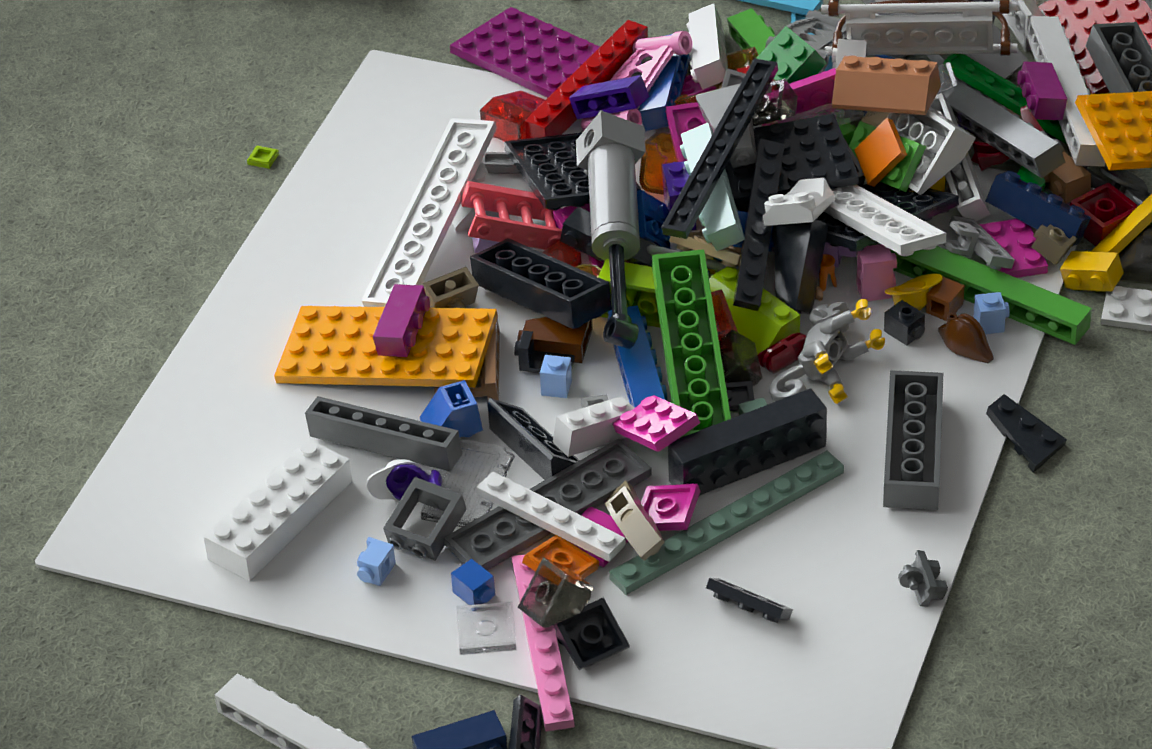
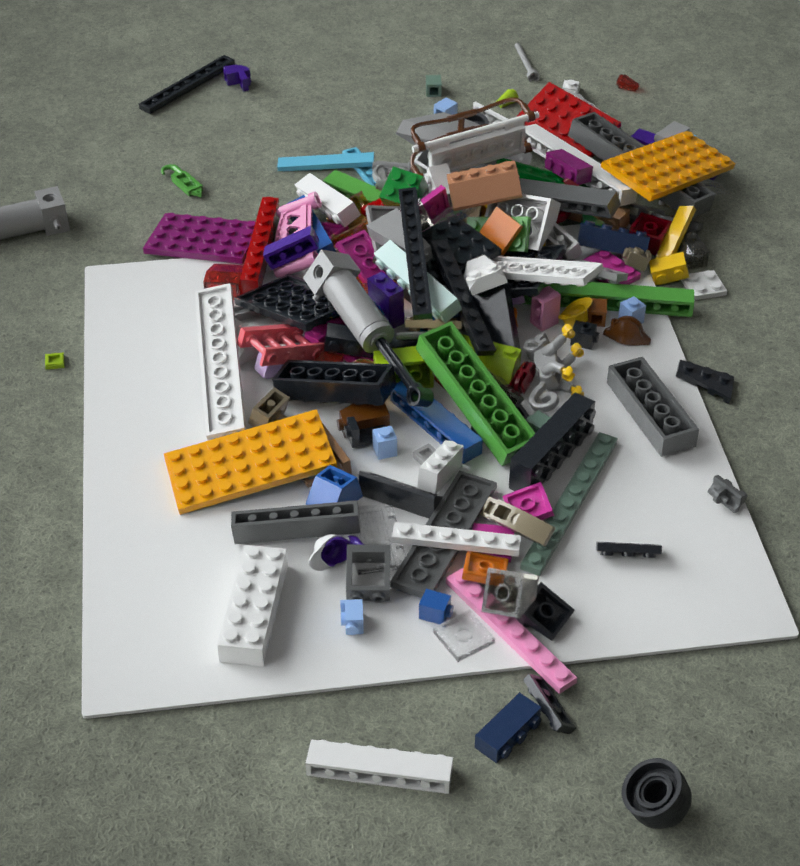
camera: 30 degrees left, 0 degrees up
(401, 320) = (258, 437): magenta brick -> none
(655, 423) = (489, 449): dark pink plate -> none

